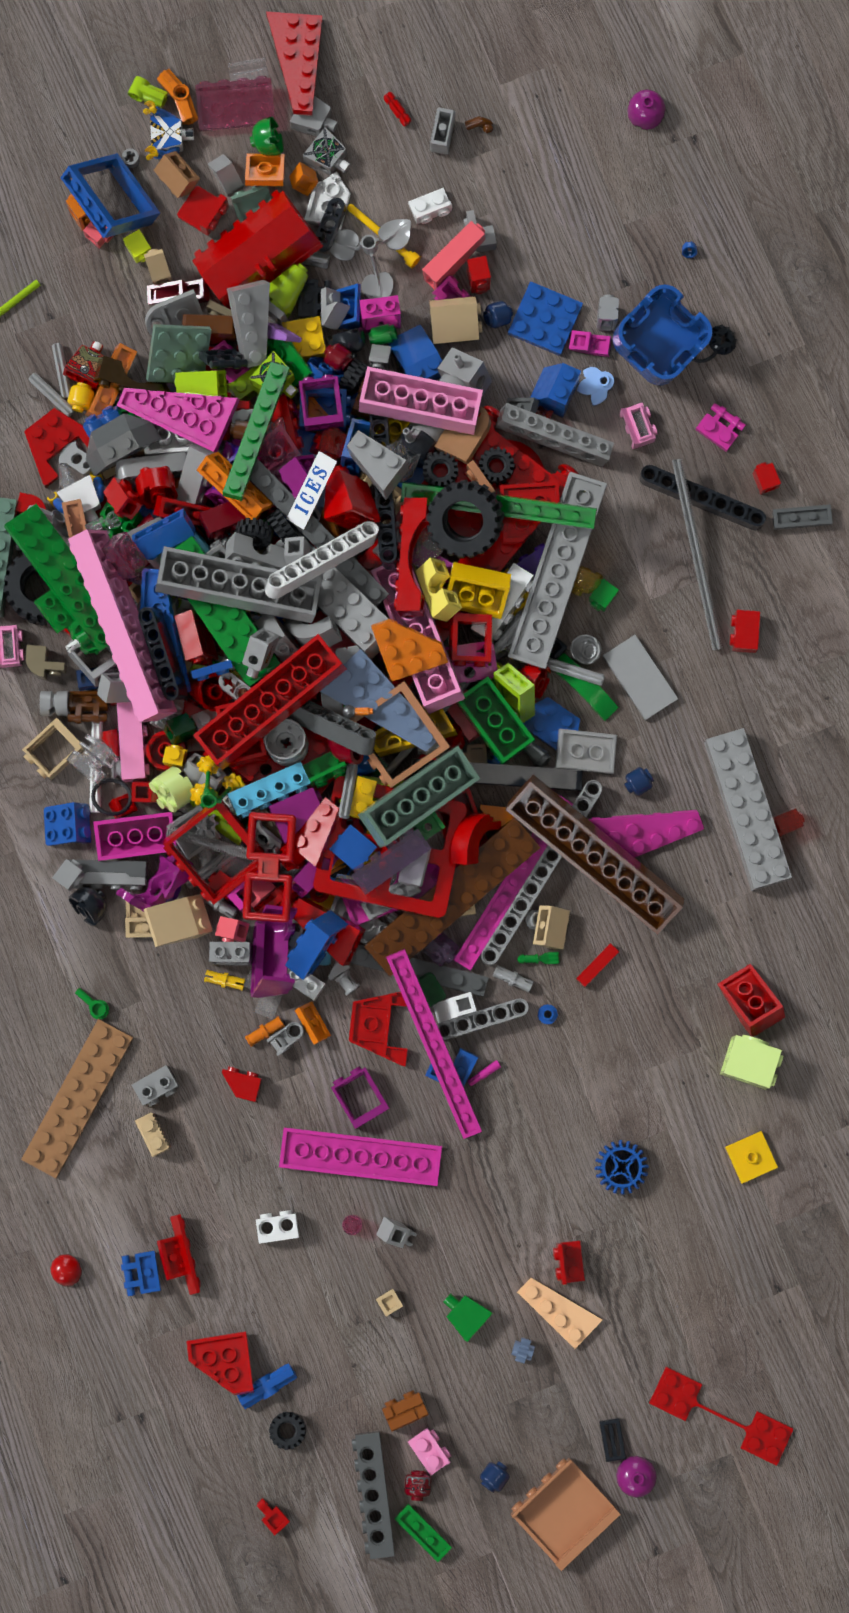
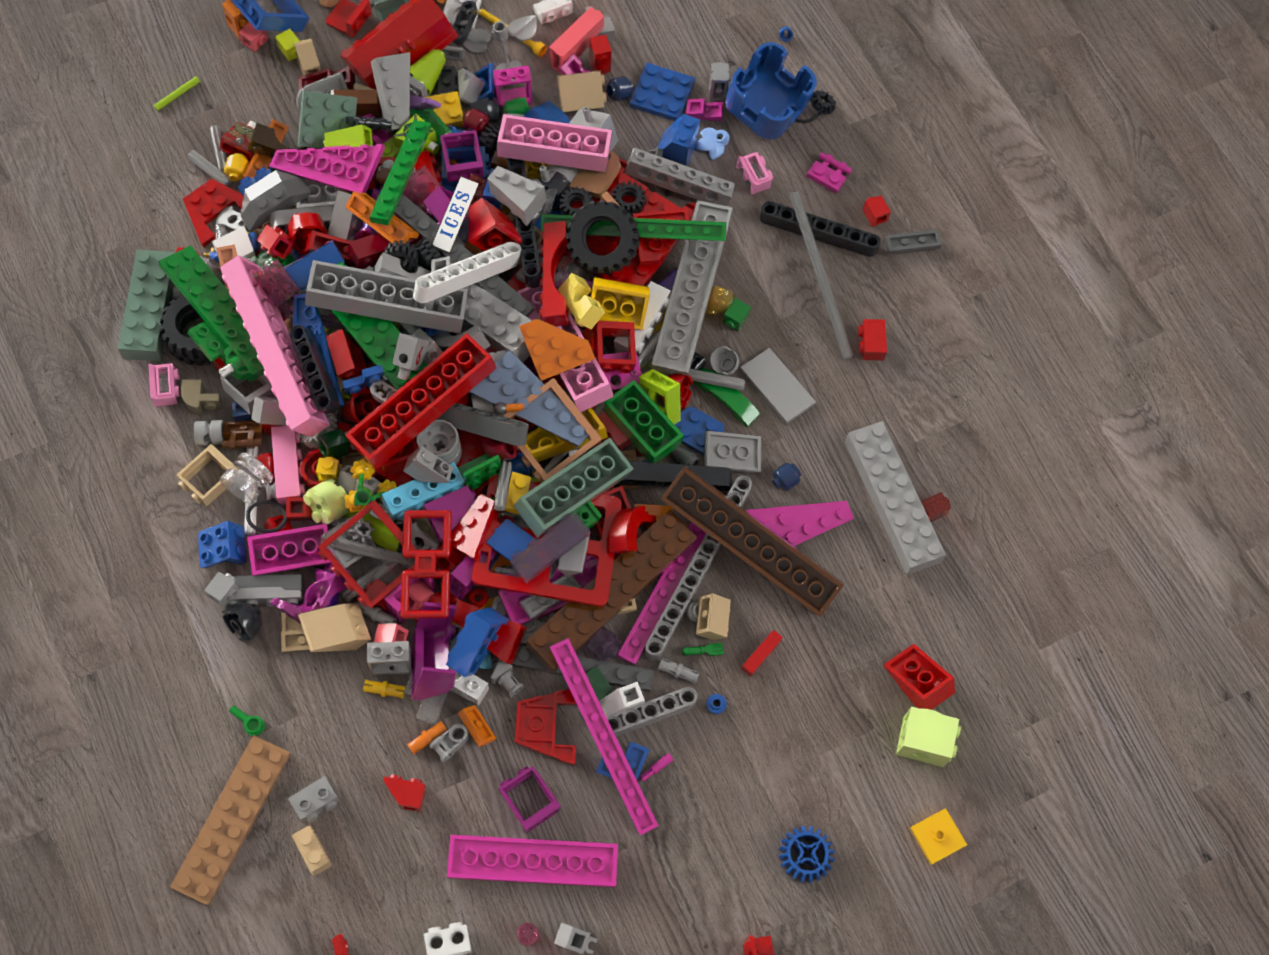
camera: 10 degrees left, 15 degrees down
(274, 769) = (428, 467): none -> light grey slope

